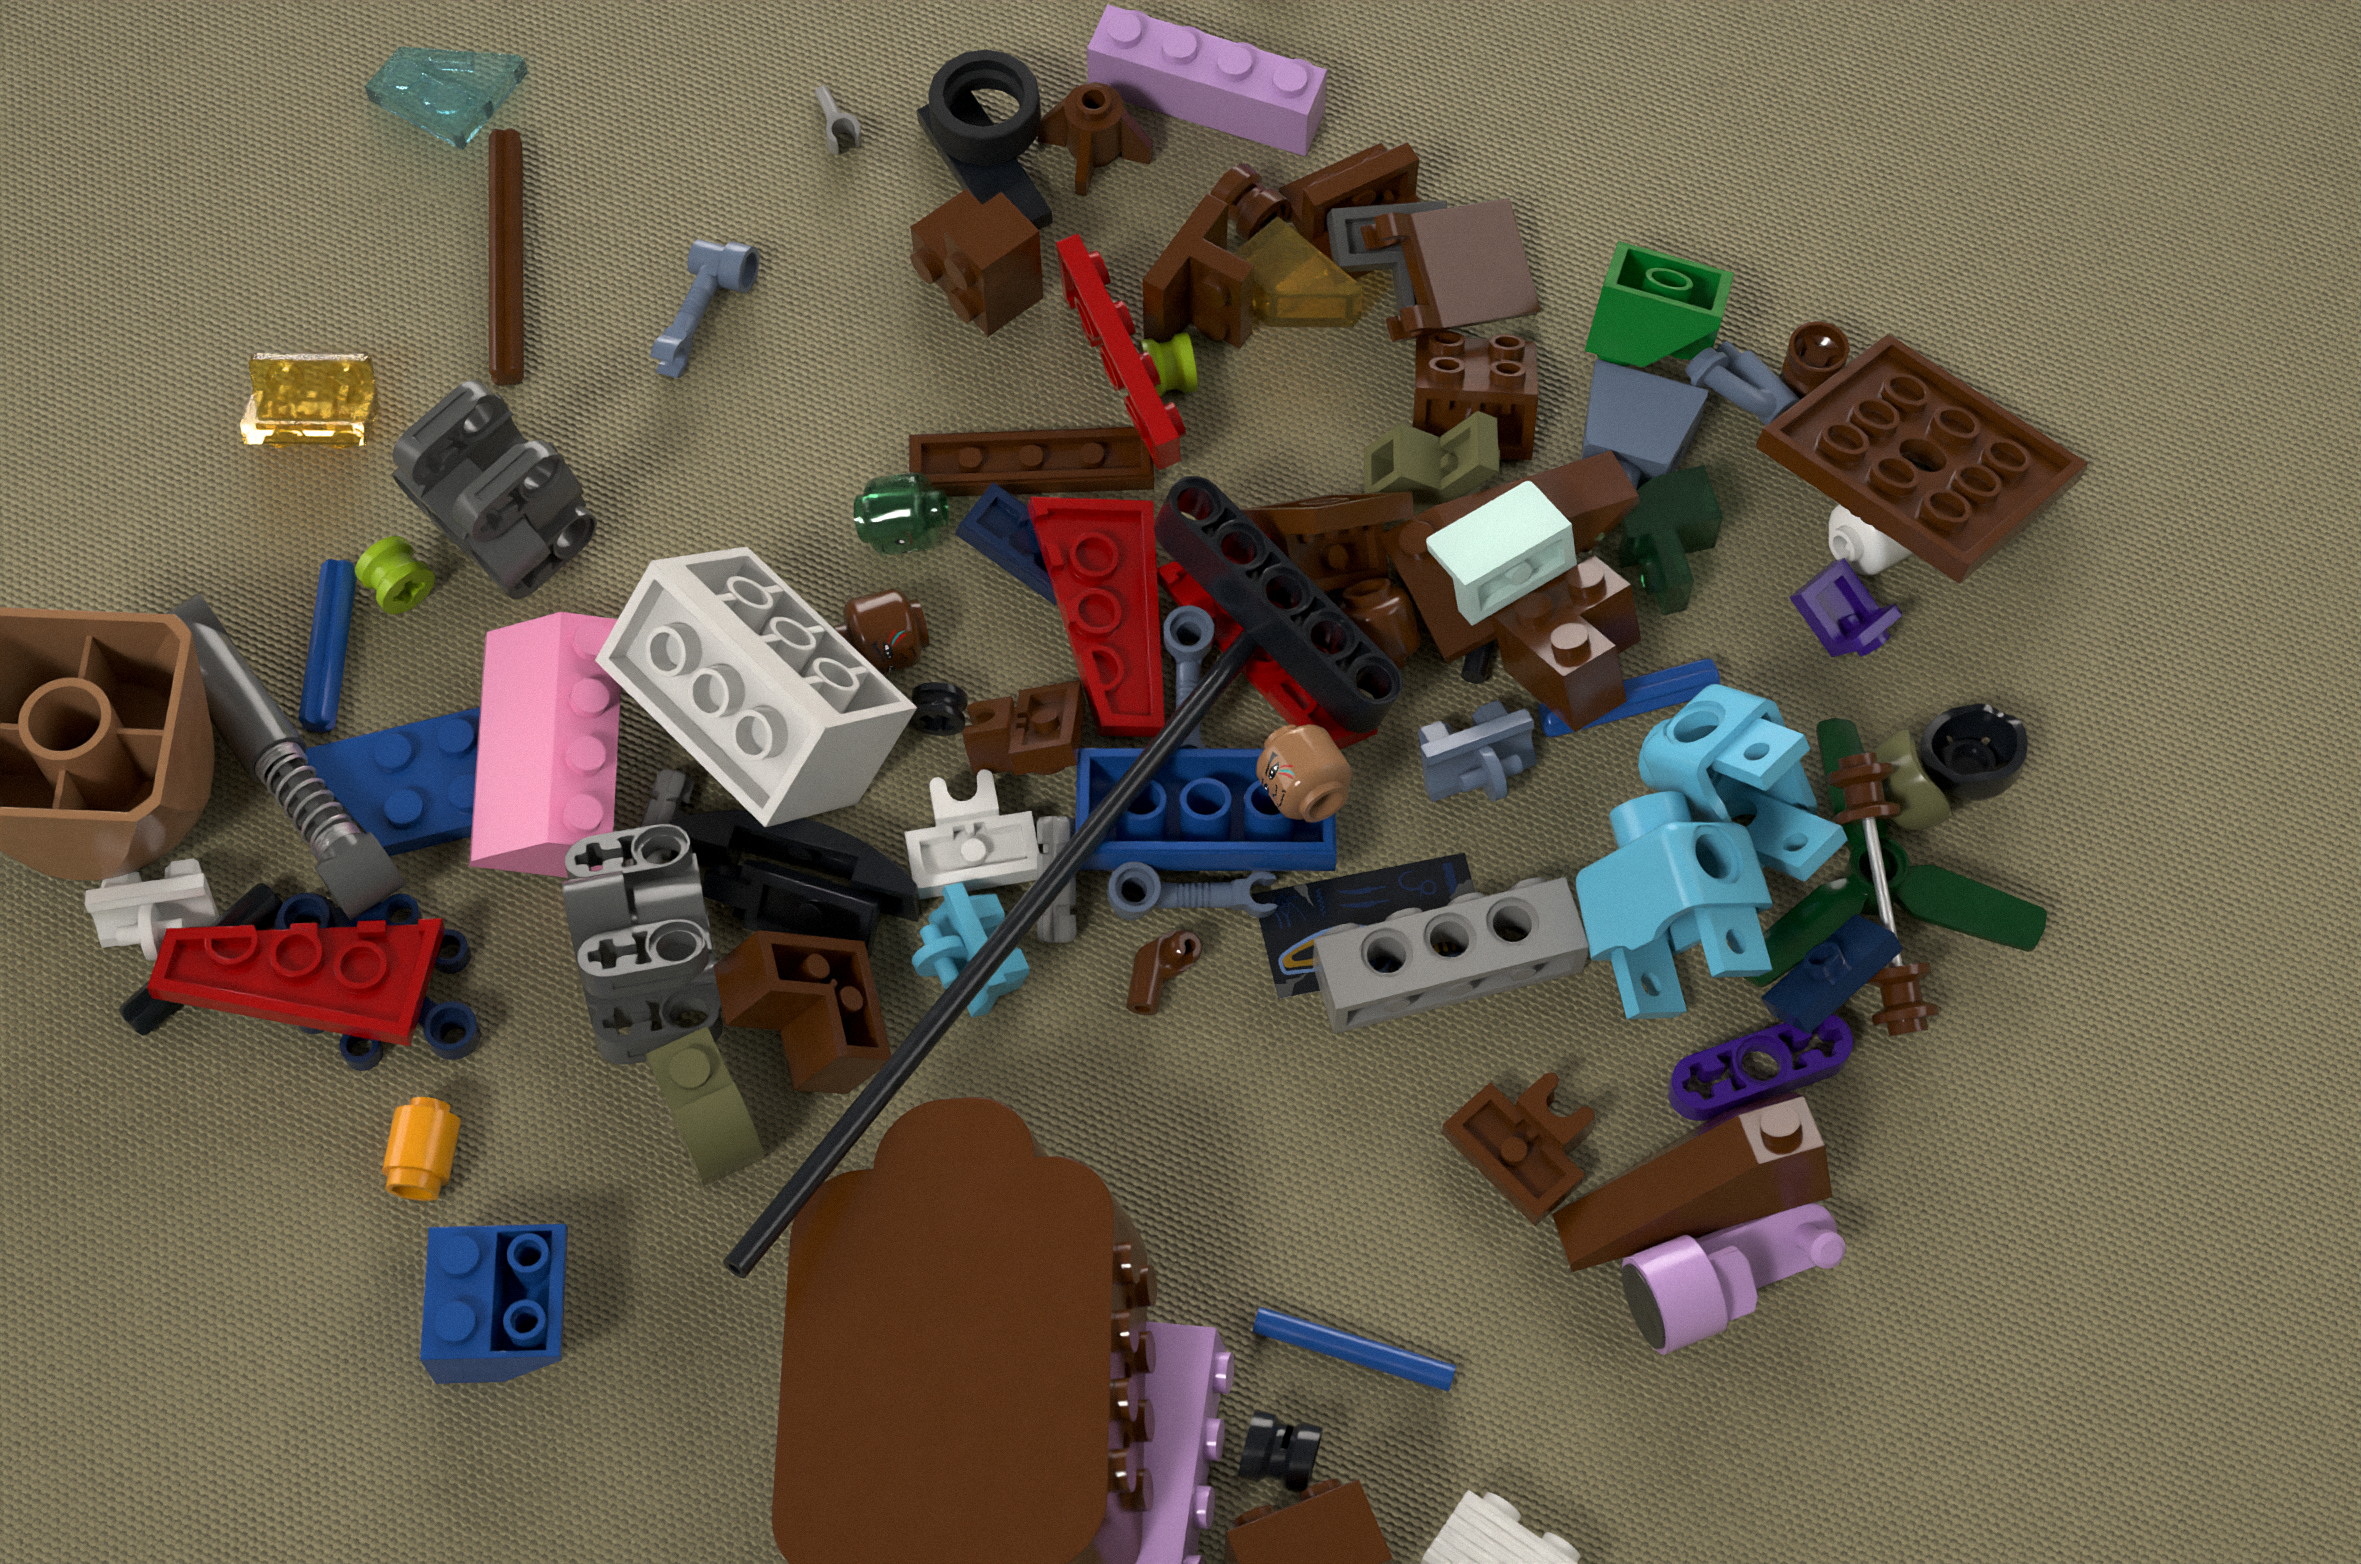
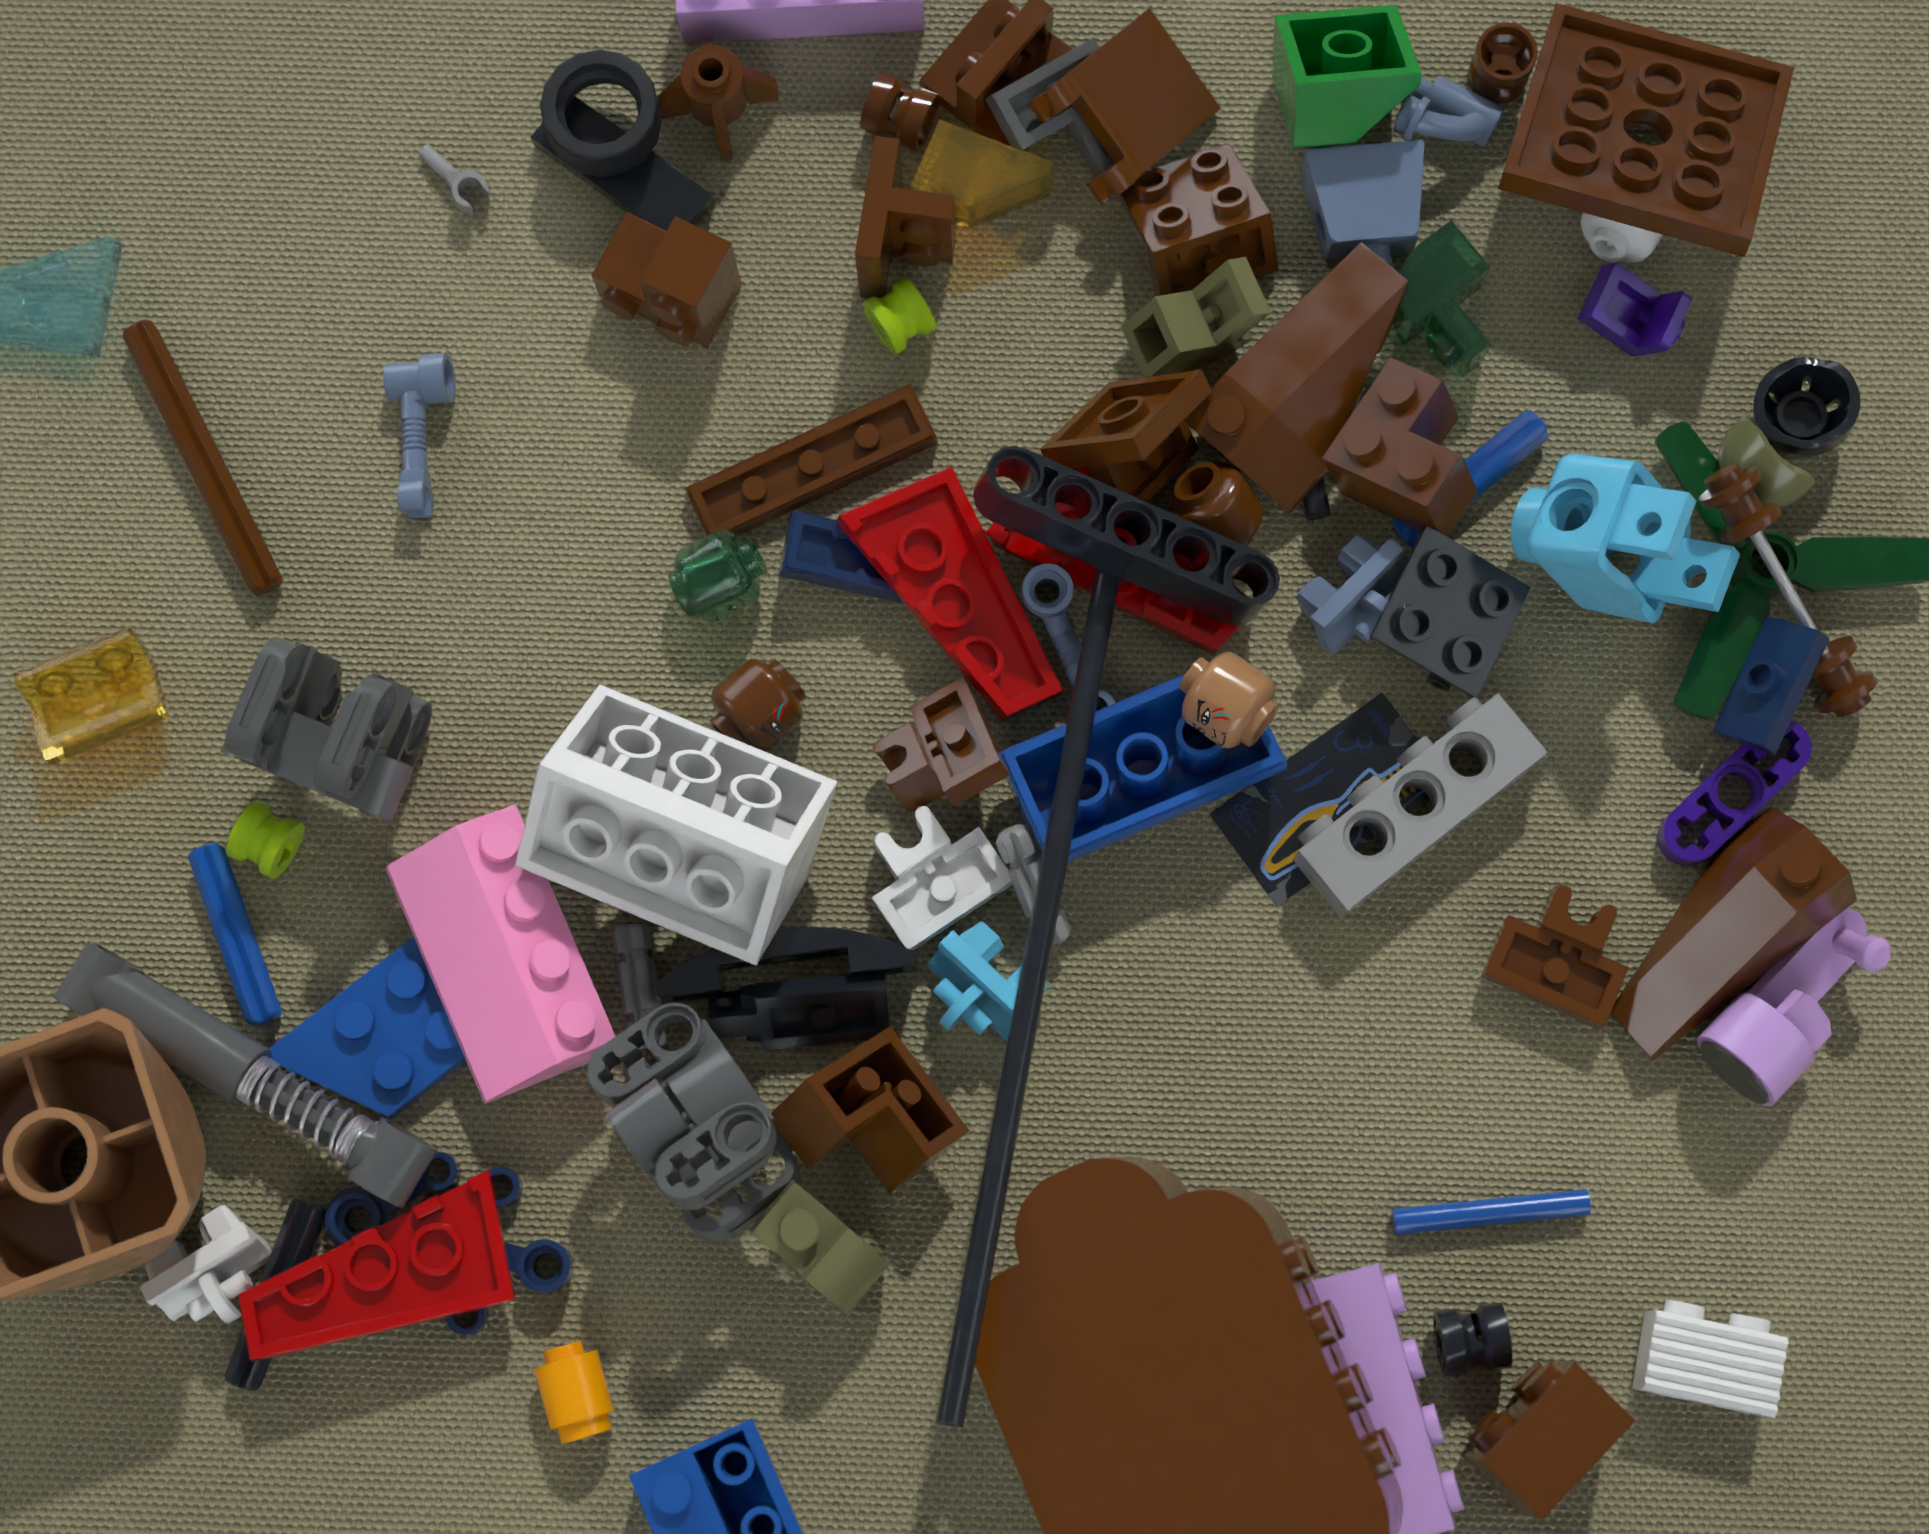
camera: 20 degrees left, 15 degrees up
(939, 709) = (845, 758): black bush -> none
(1110, 324) = (923, 389): red wing -> none
(1157, 964) = (1158, 921): reddish brown arm -> none
(1173, 895) = (1141, 853): sand blue brick -> none
(1504, 550) = (1311, 393): light aqua panel -> none
(1550, 794) = (1450, 612): none -> black hinge
(1668, 892) = (1603, 672): medium azure piece -> none

